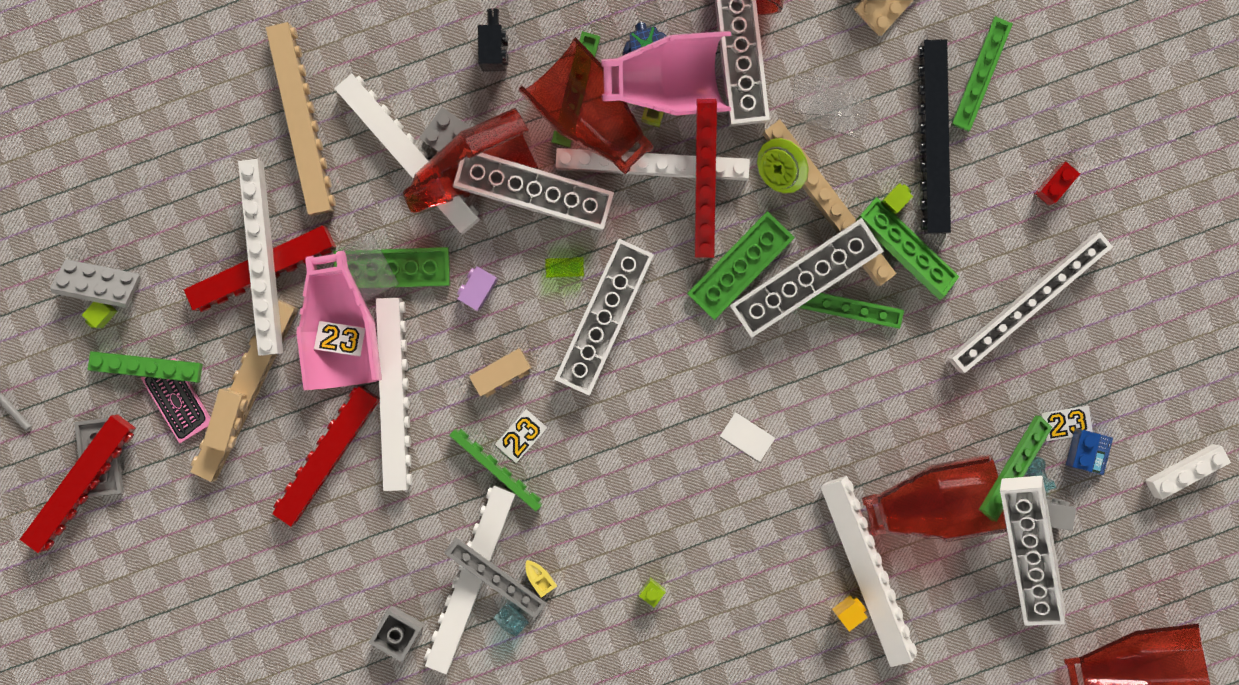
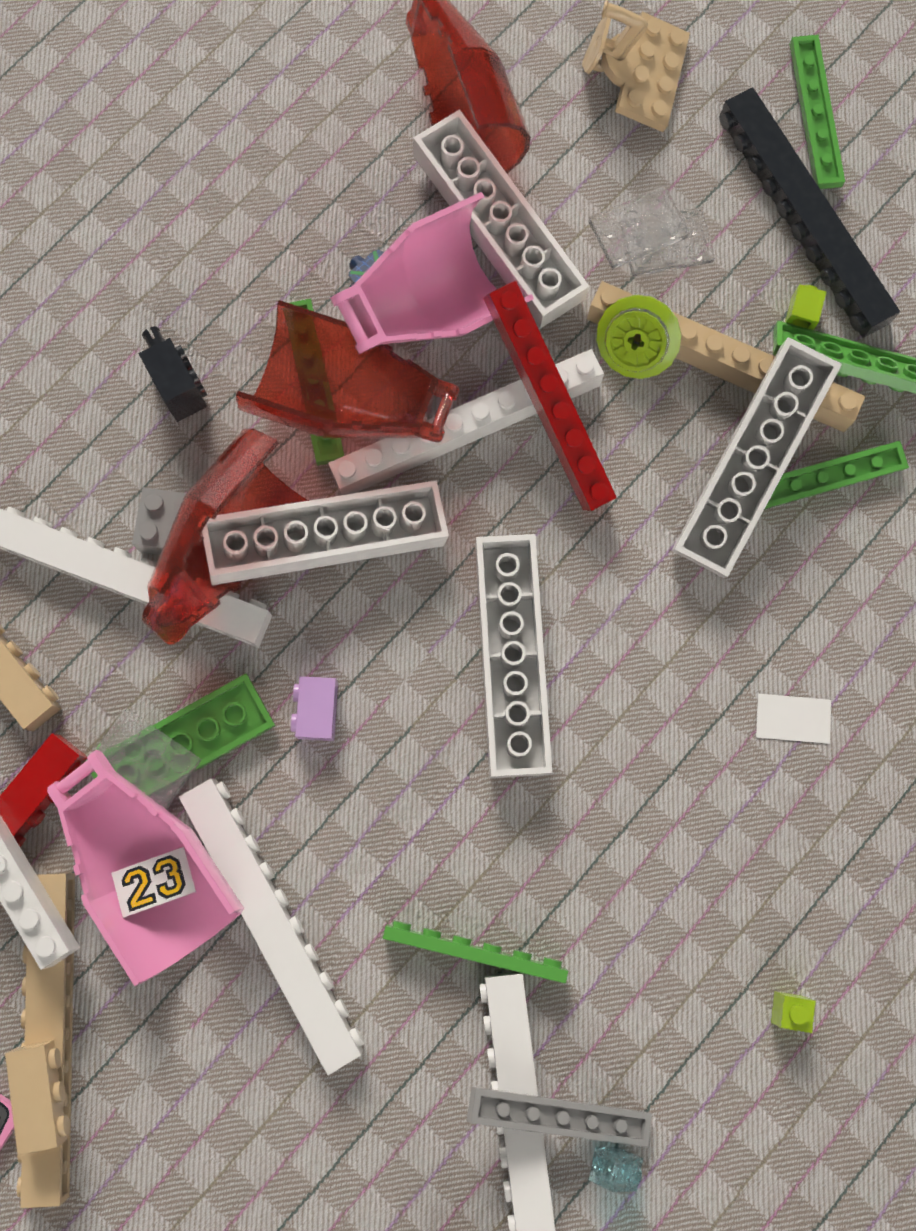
camera: 30 degrees left, 10 degrees down
(326, 456) = (216, 1073): red brick -> none
(500, 373) = (409, 809): tan brick -> none
(521, 436) = (483, 886): sticker -> none
(539, 578) = (622, 1081): light yellow plate -> none
(564, 267) = (421, 618): clear neon green plate -> none
(652, 117) = (434, 357): lime brick -> none
(740, 265) = (654, 495): bright green plate -> none

